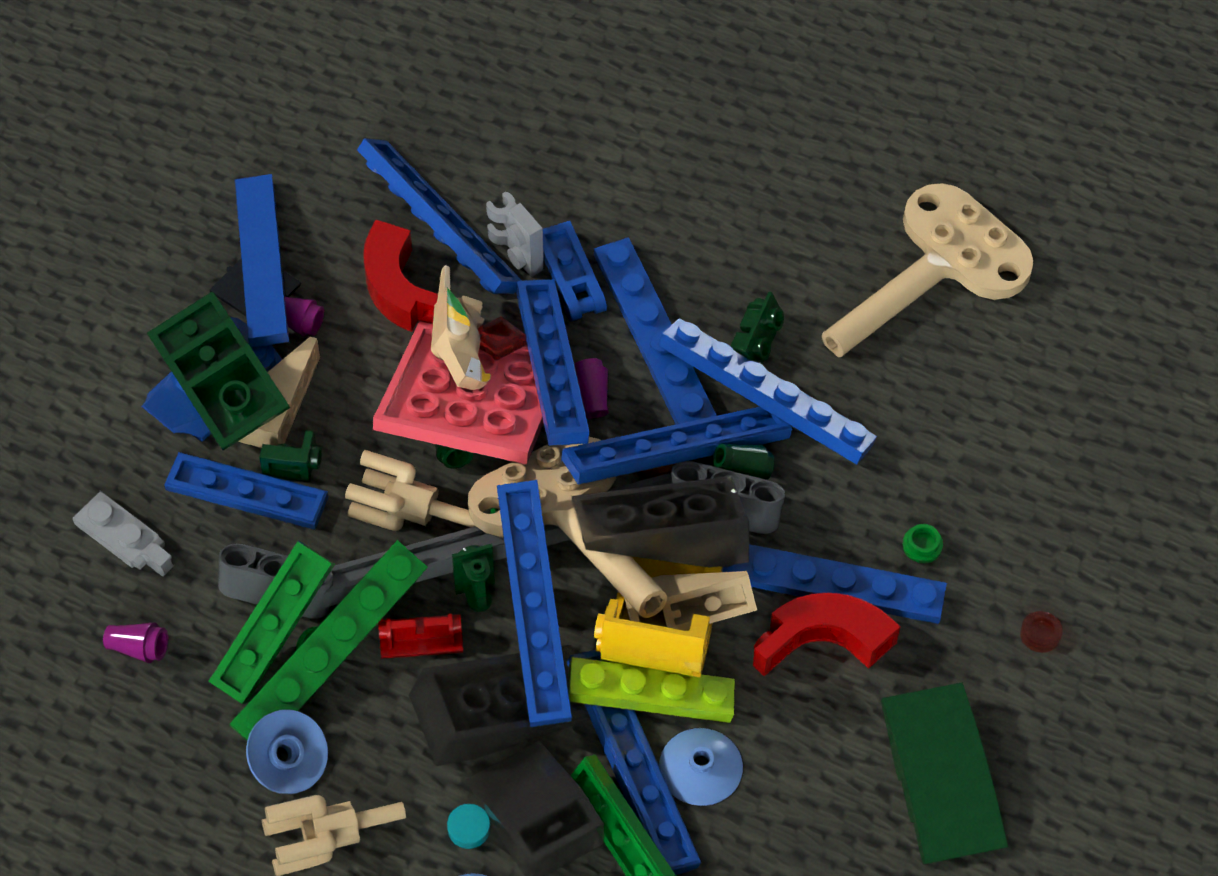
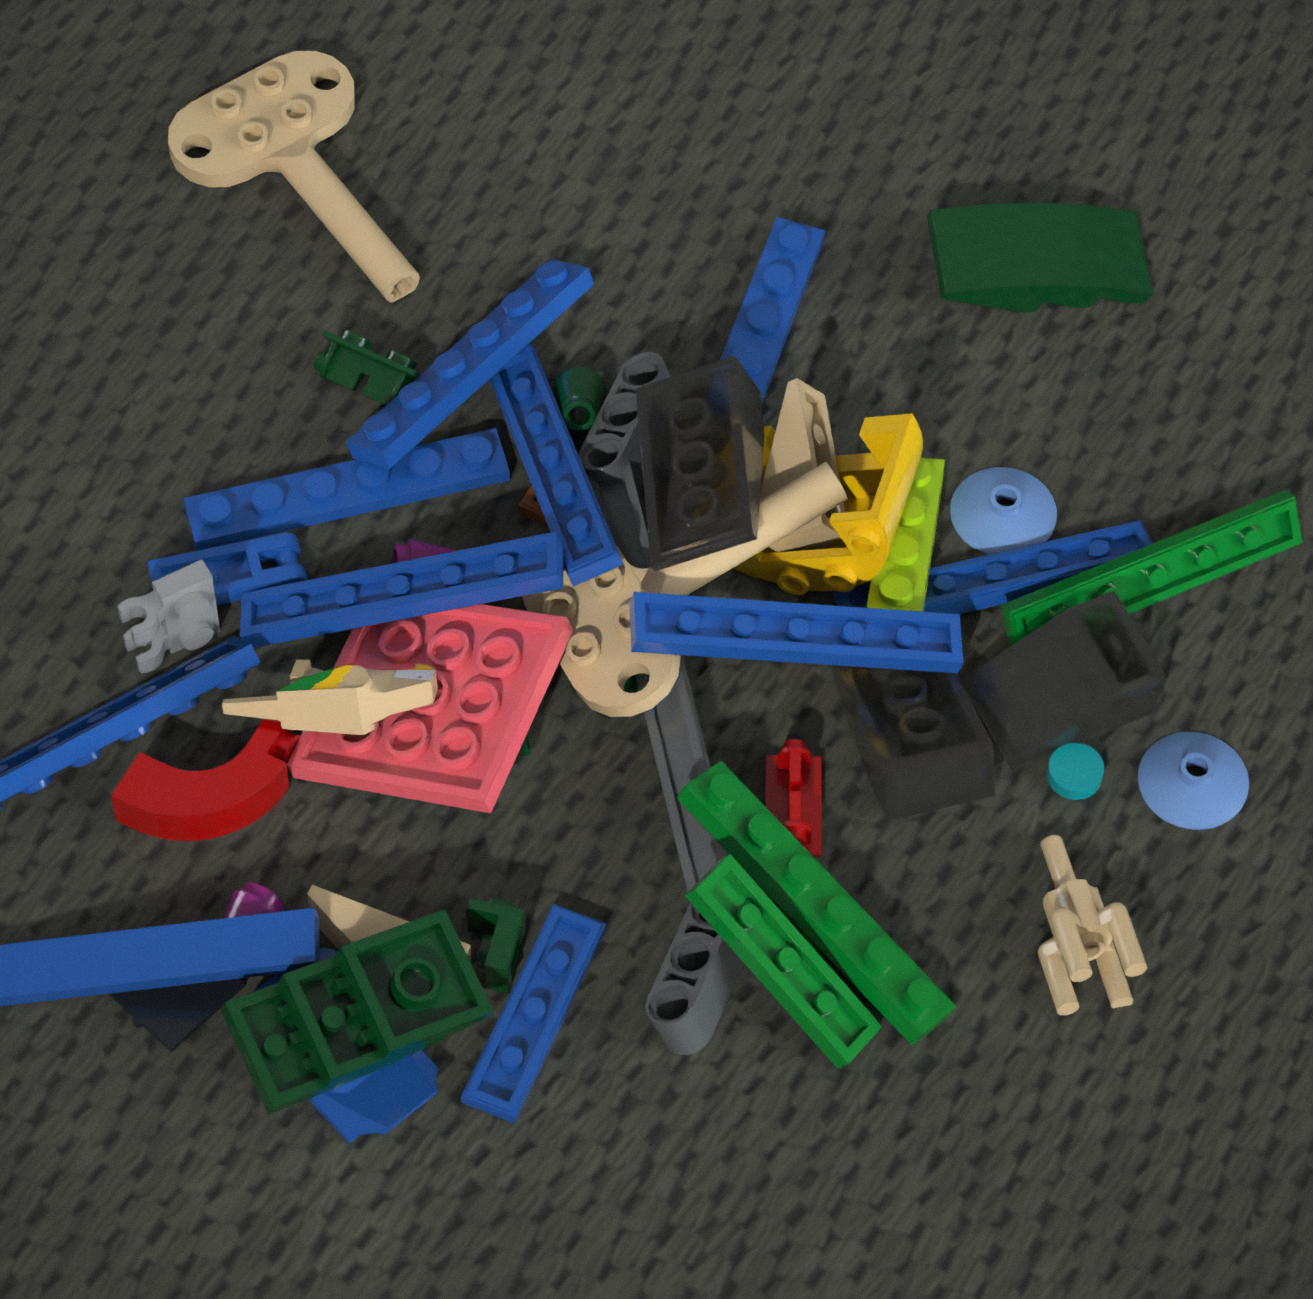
camera: 85 degrees left, 0 degrees up
(123, 534) = (589, 1177): light grey hinge -> none
(139, 641) = (772, 1157): magenta cone -> none
(305, 750) = (966, 967): medium blue dish -> none
(401, 498) = (585, 801): tan plant -> none
(473, 574) = (733, 712): dark green hinge -> none
(500, 338) = (340, 650): clear red tile -> none
(828, 618) = (829, 317): red arch -> none
(922, 543) = (714, 234): green plate -> none
(1041, 631) = (848, 137): clear red tile -> none

